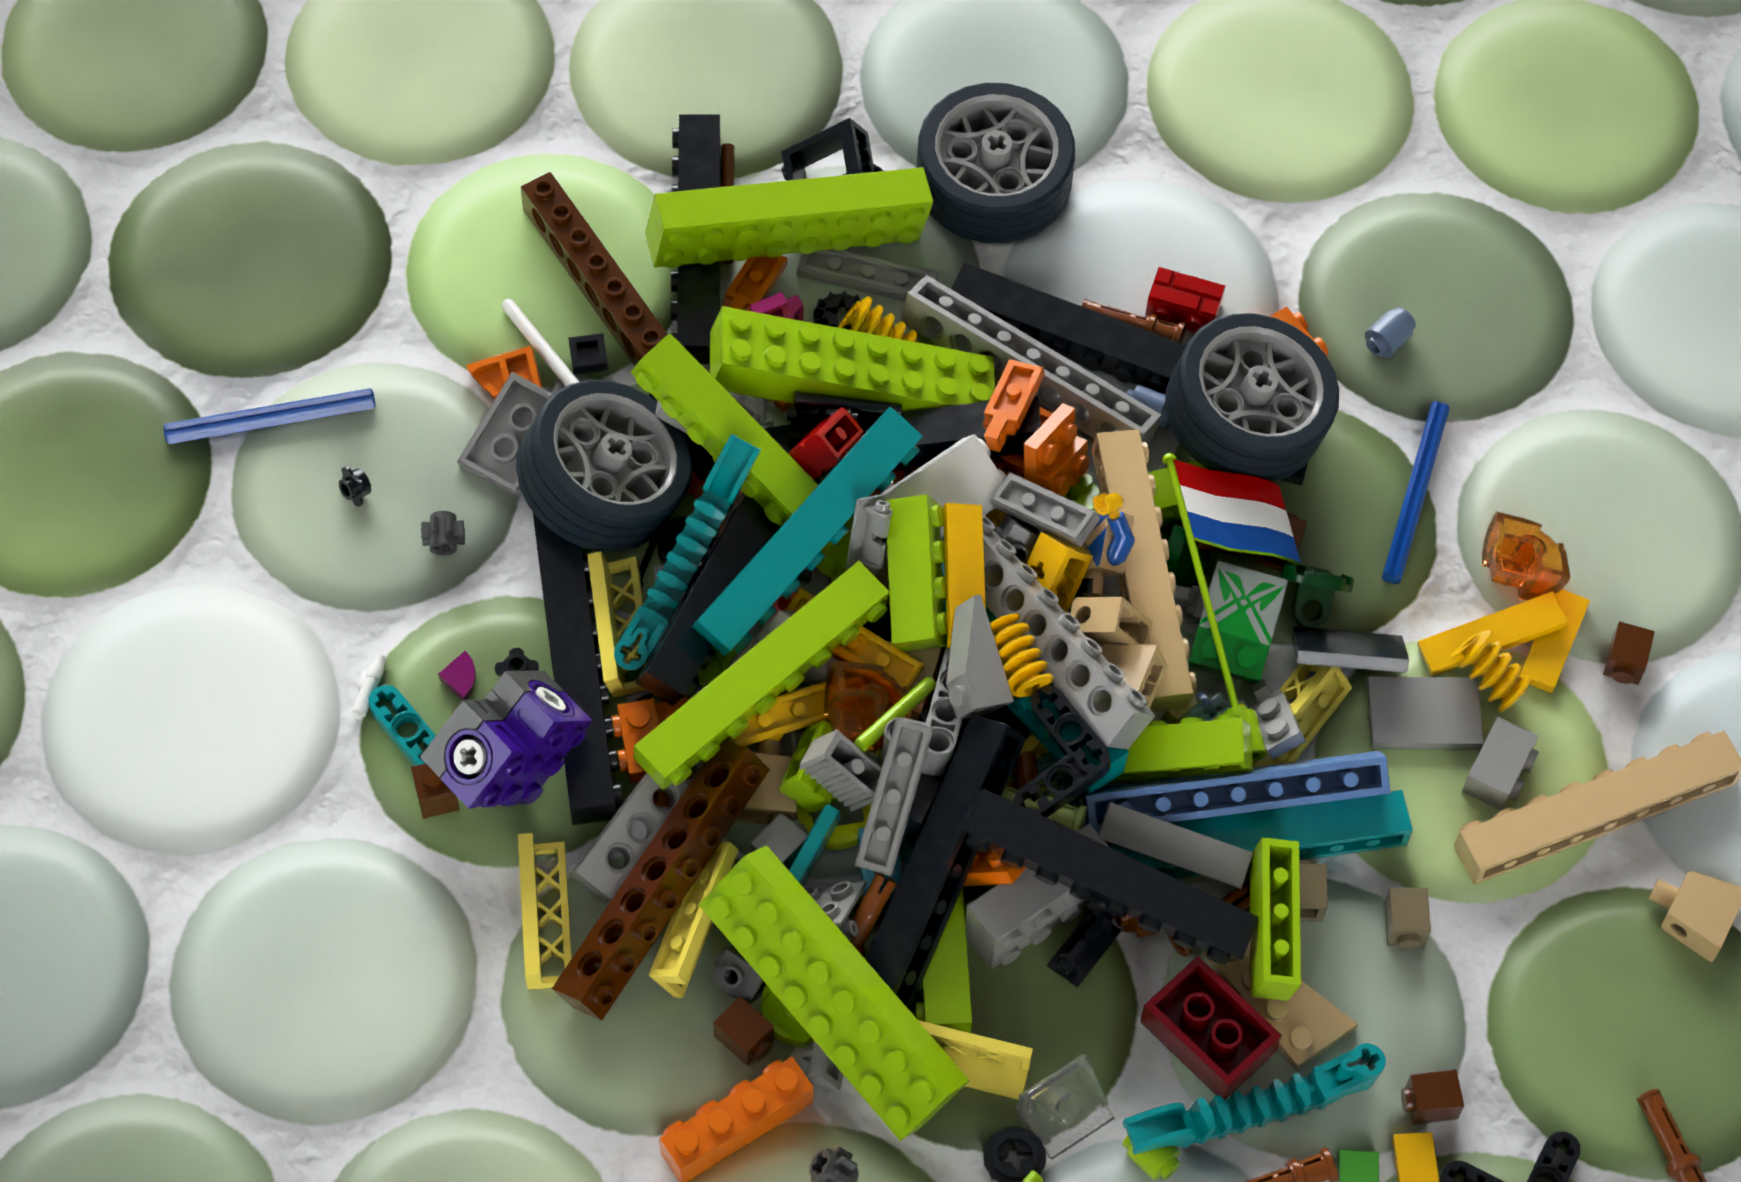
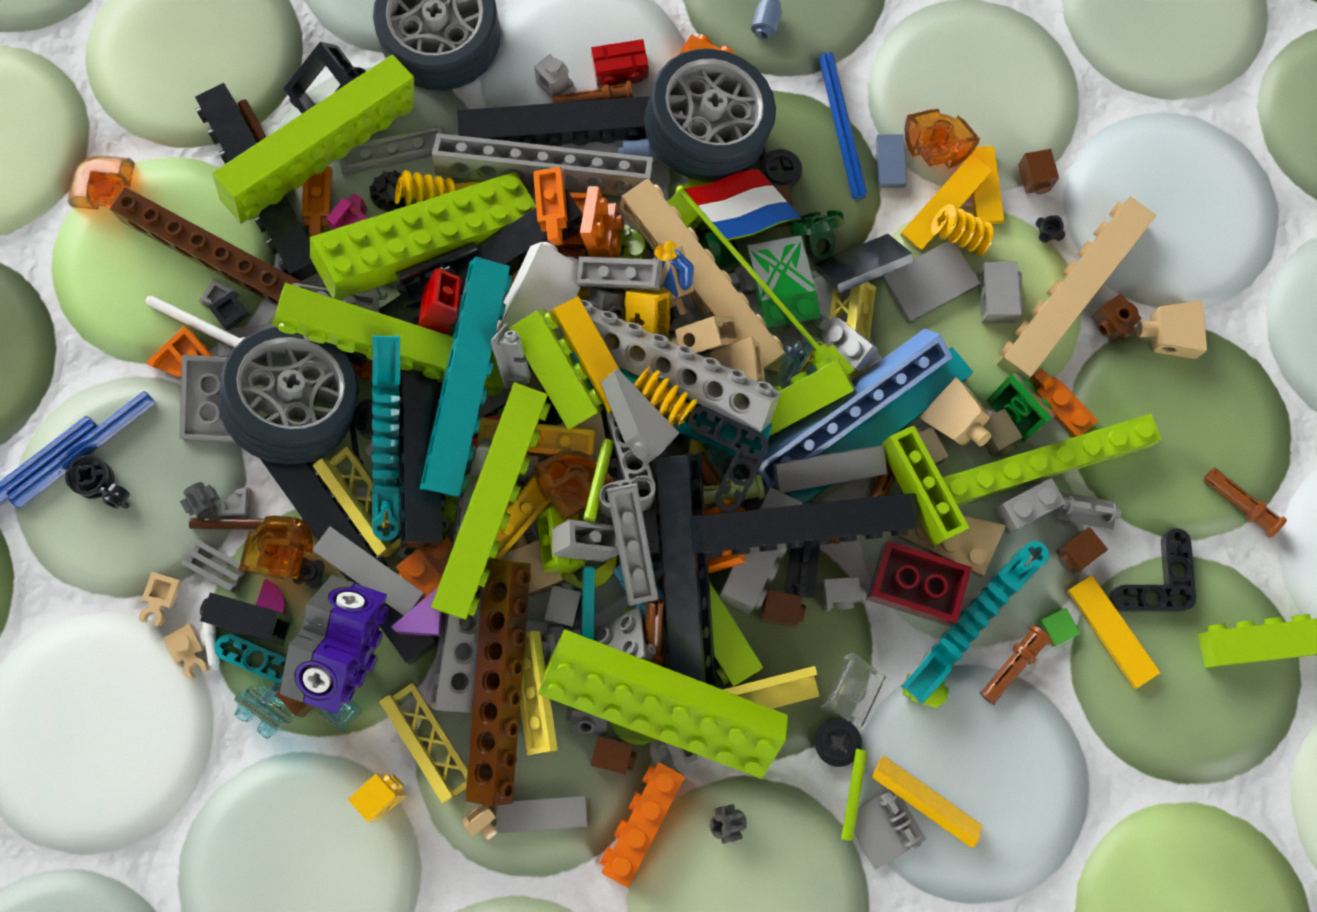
camera: 30 degrees left, 15 degrees up
(337, 448) = (88, 475): none -> black wheel
(337, 680) = (184, 647): none -> tan plate
(343, 609) = (160, 593): none -> tan plate
(345, 420) = (81, 448): none -> axle
(379, 771) = (264, 705): none -> clear light blue hips
(404, 588) = (194, 554): none -> light grey tile
(421, 674) = (245, 618): none -> black brick
(460, 931) = (377, 796): none -> yellow brick
(468, 832) = (345, 716): none -> clear light blue tile
(478, 560) = (236, 504): none -> light grey tile
(479, 586) = (226, 523): none -> reddish brown bar
(498, 622) = (277, 547): none -> clear orange brick
(524, 155) = (99, 181): none -> clear orange brick
(556, 1022) = (480, 820): none -> tan tile
(580, 682) = (367, 571): none -> light grey tile
(582, 327) = (214, 292): none -> light grey tile
(612, 769) = (421, 619): none -> medium lavender slope
(627, 1055) = (542, 814): none -> light grey tile
(1032, 977) = (783, 609): none -> reddish brown brick
(1097, 278) = (552, 75): none -> light grey brick
(1113, 996) = (842, 592): none -> light grey brick
(1306, 490) = (789, 162): none -> black gear
(1365, 865) = (958, 415): none -> tan torso
(1397, 1015) = (1030, 506): none -> light grey brick
(1451, 978) = (1053, 460): none -> lime brick
(1452, 558) = (891, 161): none -> sand blue tile
(1452, 895) = (1022, 404): none -> green slope
(1469, 1059) = (1089, 511): none -> light grey hinge
(1508, 928) = (1067, 408): none -> orange hinge
(1612, 717) = (1055, 223): none -> black plate
(1629, 860) = (1117, 318): none -> reddish brown brick

